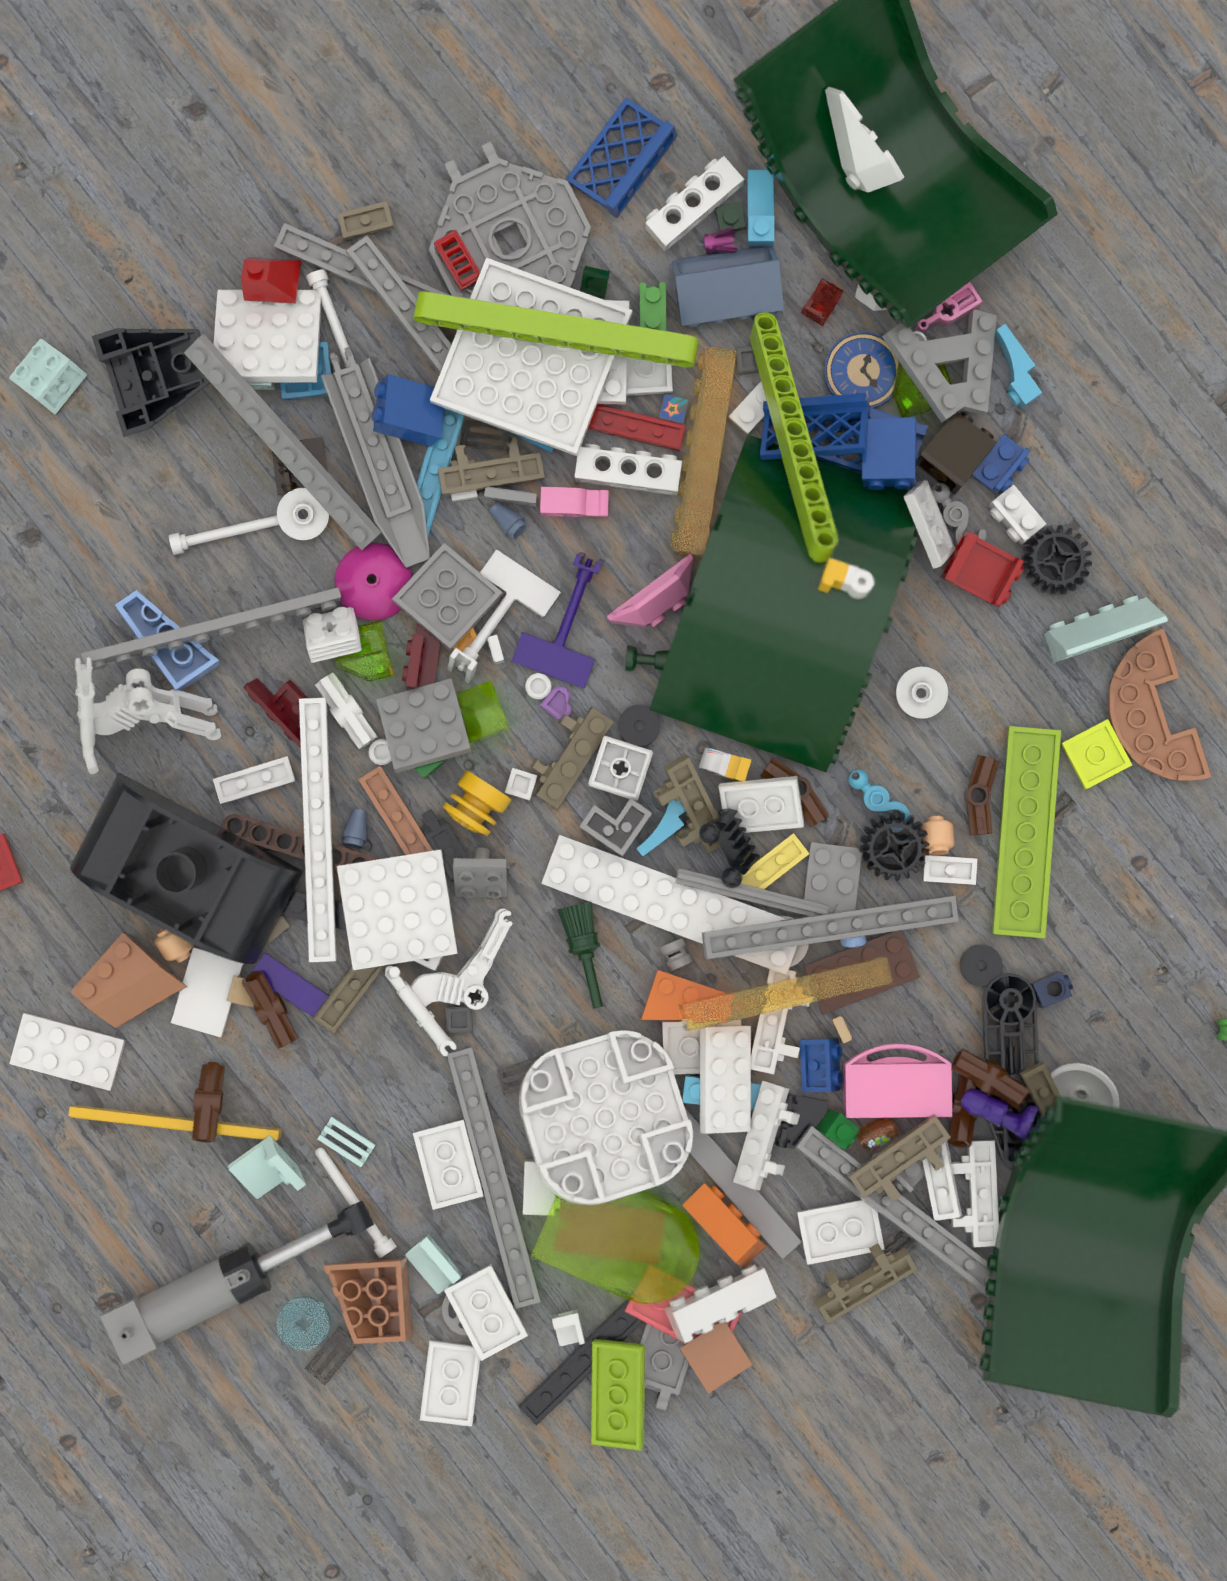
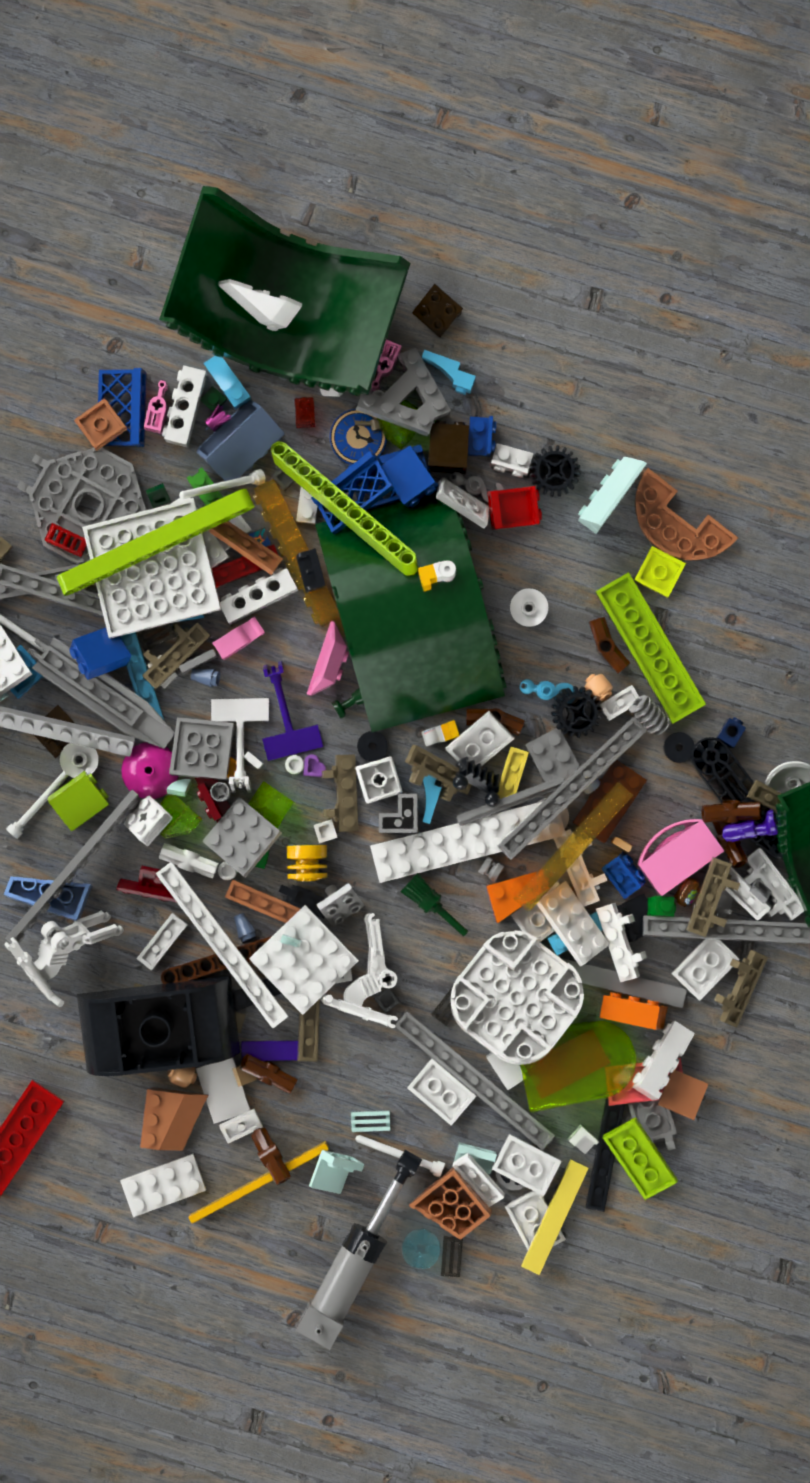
camera: 30 degrees left, 0 degrees up
(198, 1046) = (240, 1126): none -> white plate
(271, 559) = (78, 800): none -> lime brick
(393, 622) = (179, 787): none -> light aqua tile
(395, 876) = (288, 940): none -> light aqua tile
(421, 1291) = (478, 1179): none -> white plate
(434, 658) = (218, 793): none -> light grey wheel
(476, 1392) = (554, 1217): none -> light yellow tile
(586, 158) = (100, 424): none -> nougat tile
(651, 195) = (155, 418): none -> bright pink piece
(654, 406) = (247, 546): none -> nougat plate
(706, 481) = (310, 570): none -> black hinge
(717, 337) = (256, 477): none -> white piece
(891, 367) = (373, 423): none -> dark tan hand
(961, 1189) = (760, 890): none -> flat silver tile
(973, 906) = (649, 715): none -> light grey piece
(1050, 291) = (437, 310): none -> dark brown hinge

